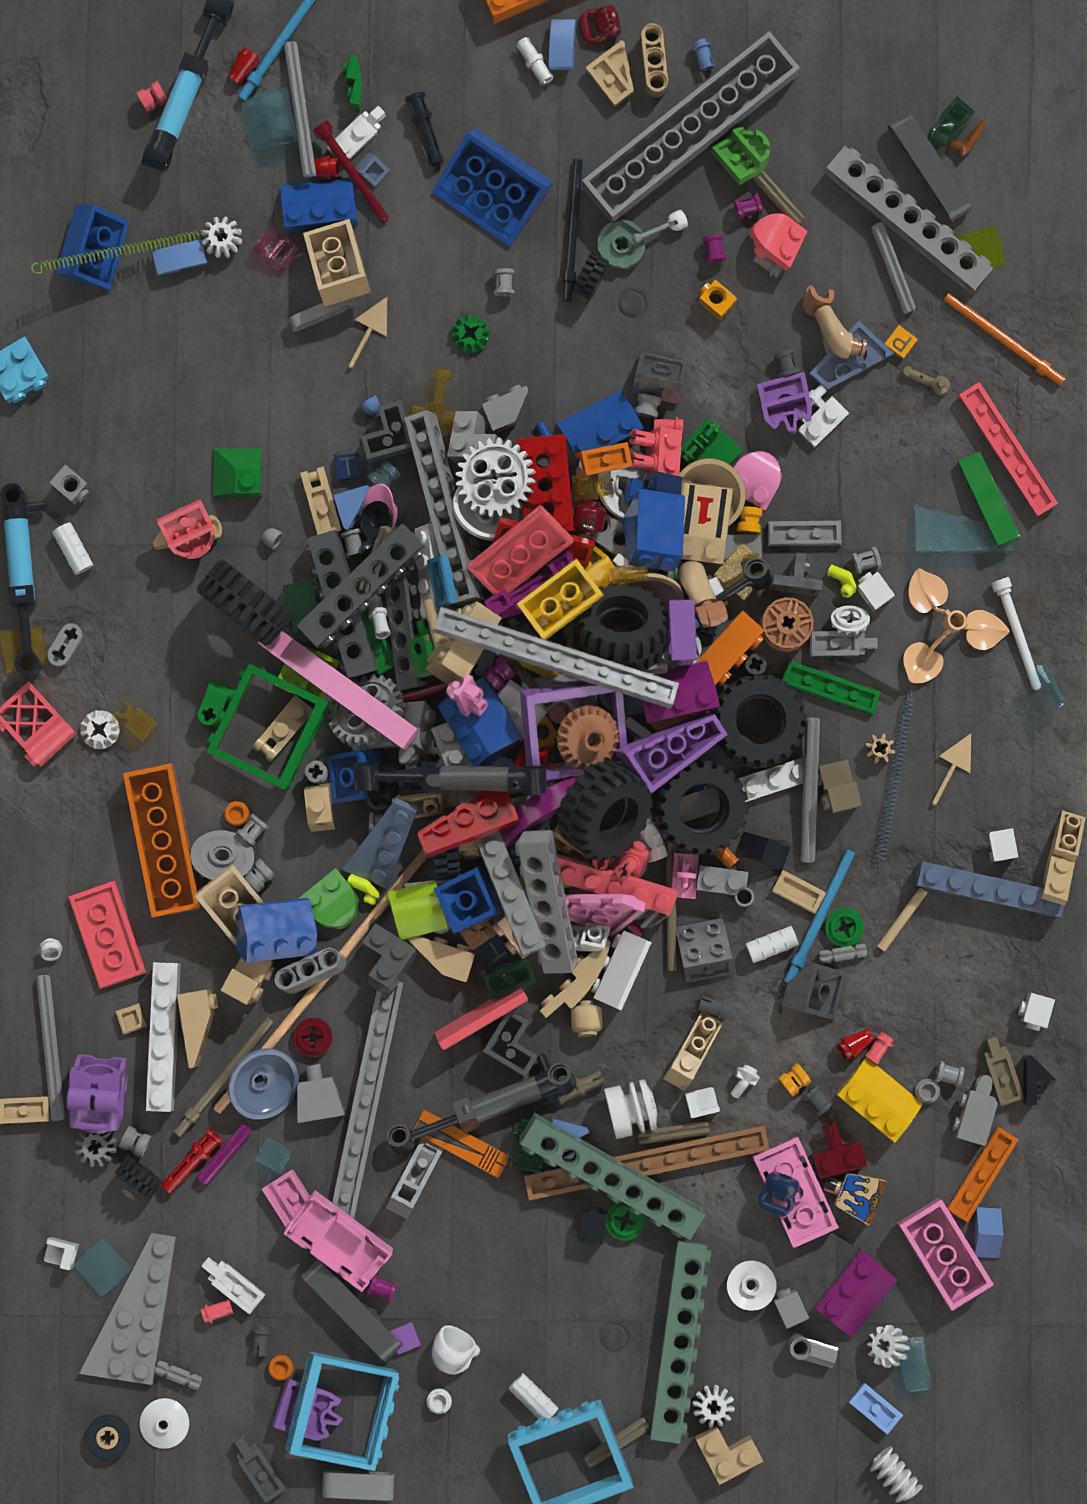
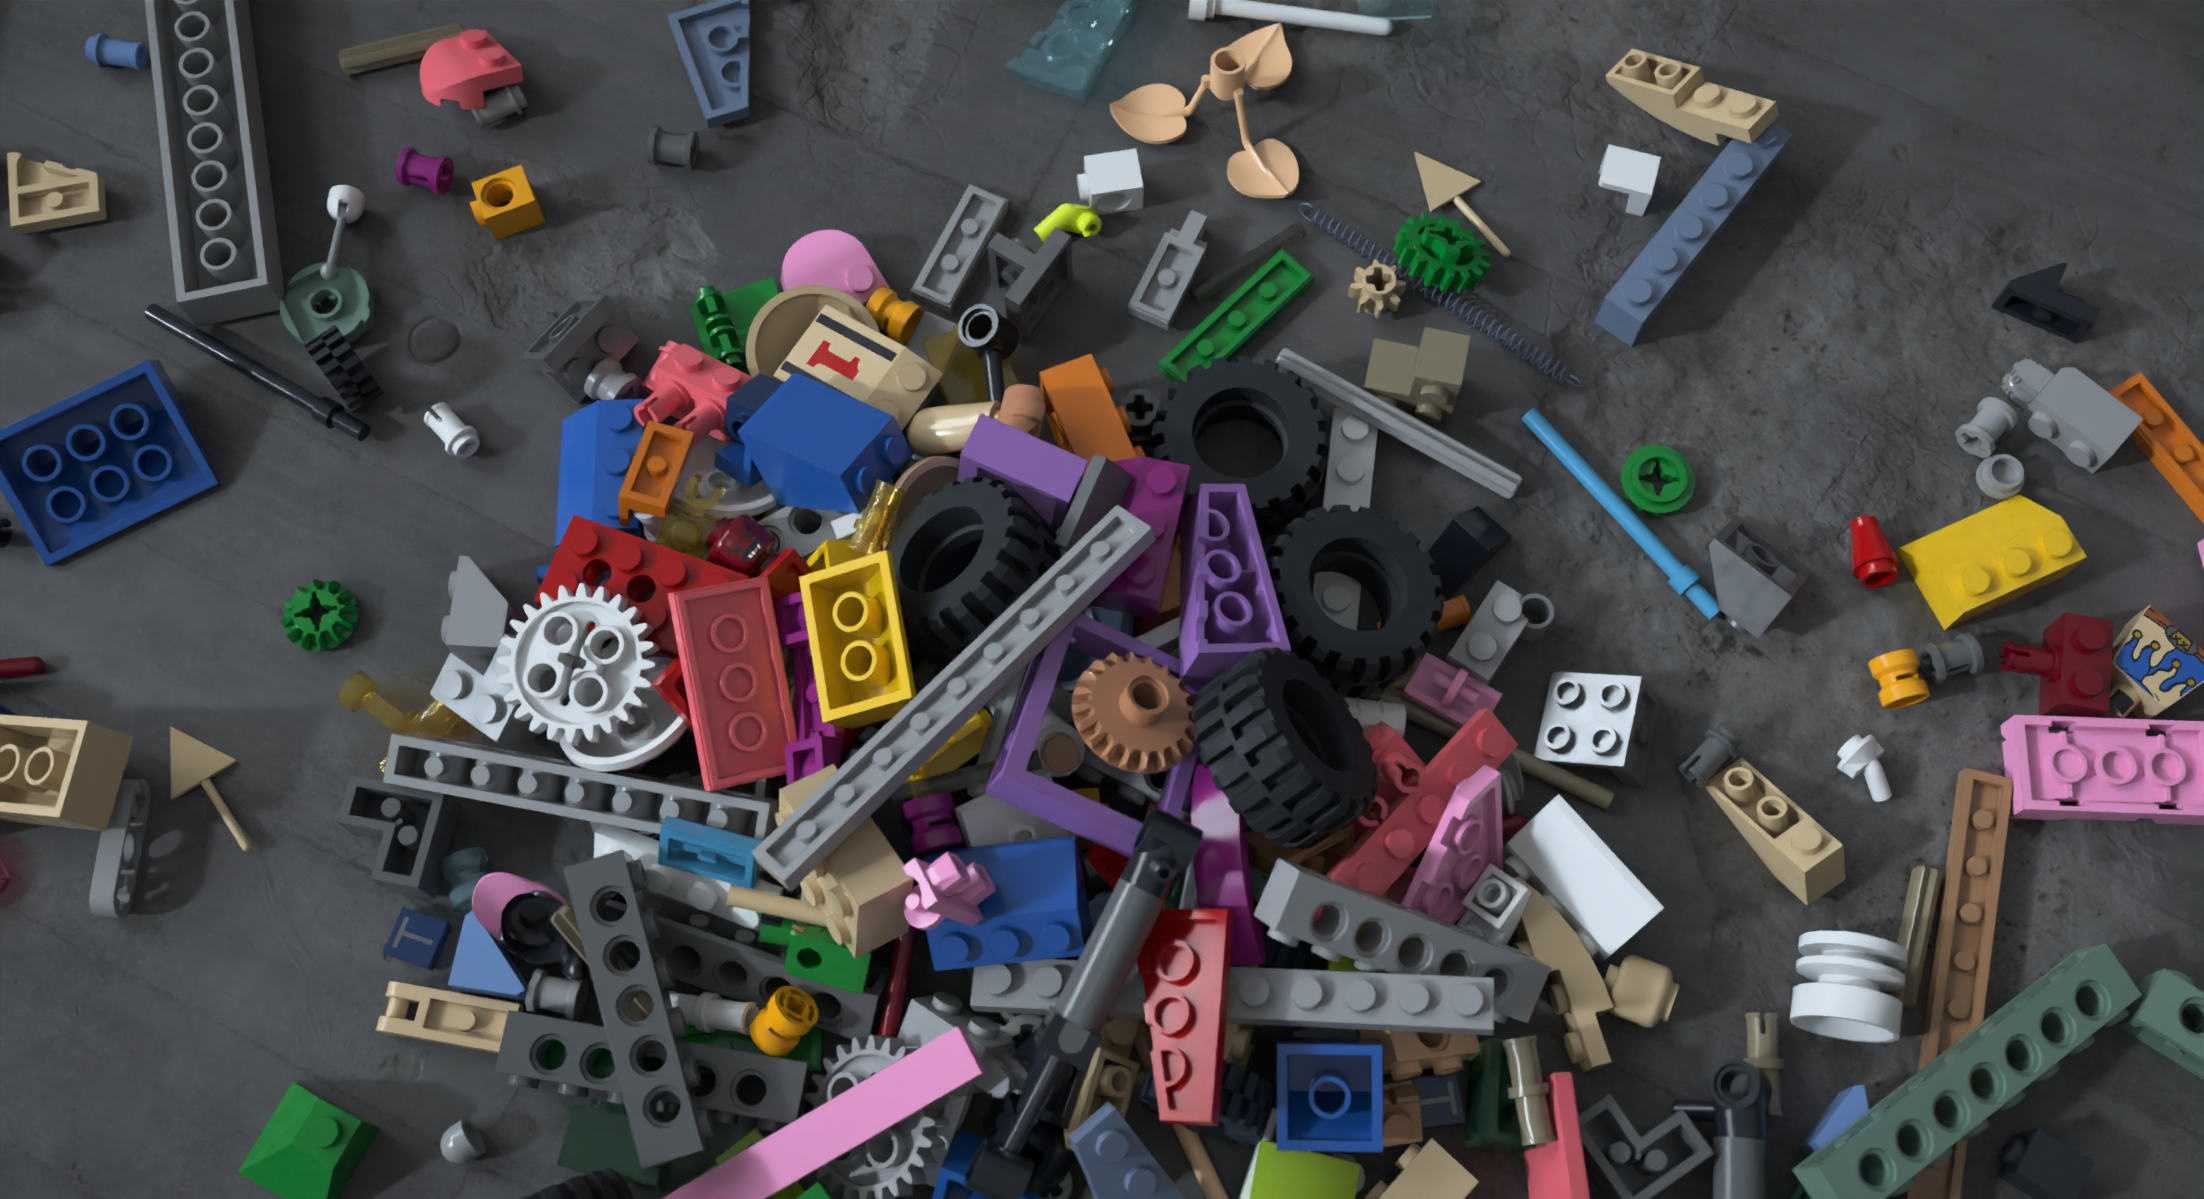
camera: 60 degrees left, 15 degrees down
(370, 406) = (335, 844): medium blue hinge -> none
(388, 650) = (783, 1021): none -> light orange wheel
(503, 282) = (268, 517): light grey bush -> none
(512, 985) = (1529, 1090): none -> dark tan pin
(587, 344) = (458, 438): none -> white pin
(614, 1225) = (2074, 1105): green gear -> none
(654, 49) = (73, 123): tan beam -> none
(678, 671) = (1097, 495): none -> dark grey tile
(701, 1102) = (1879, 860): white panel -> none
(743, 154) = (303, 60): bright green slope -> none
(748, 206) = (390, 93): magenta bush -> none
(772, 944) = (1638, 608): white axle -> none
(780, 1187) = (2104, 782): dark blue piece -> none
(782, 638) = (1115, 343): nougat wheel -> none
(786, 401) = (730, 169): medium lavender plate -> none
(798, 892) = (1561, 527): tan tile -> none
(824, 419) = (795, 140): white plate -> none
(836, 336) = (650, 50): piece -> none
(842, 615) = (1147, 225): white gear -> none
(842, 953) = (1702, 504): light grey axle -> none
(866, 560) = (1055, 173): light grey bush -> none
(879, 1047) = (1893, 517): coral pin -> none
(902, 919) = (1682, 387): tan bar -> none
(913, 771) = (1442, 252): none -> green gear
(1002, 1073) = (2005, 342): dark tan hinge -> none
(1036, 1011) = (1930, 248): white brick -> none

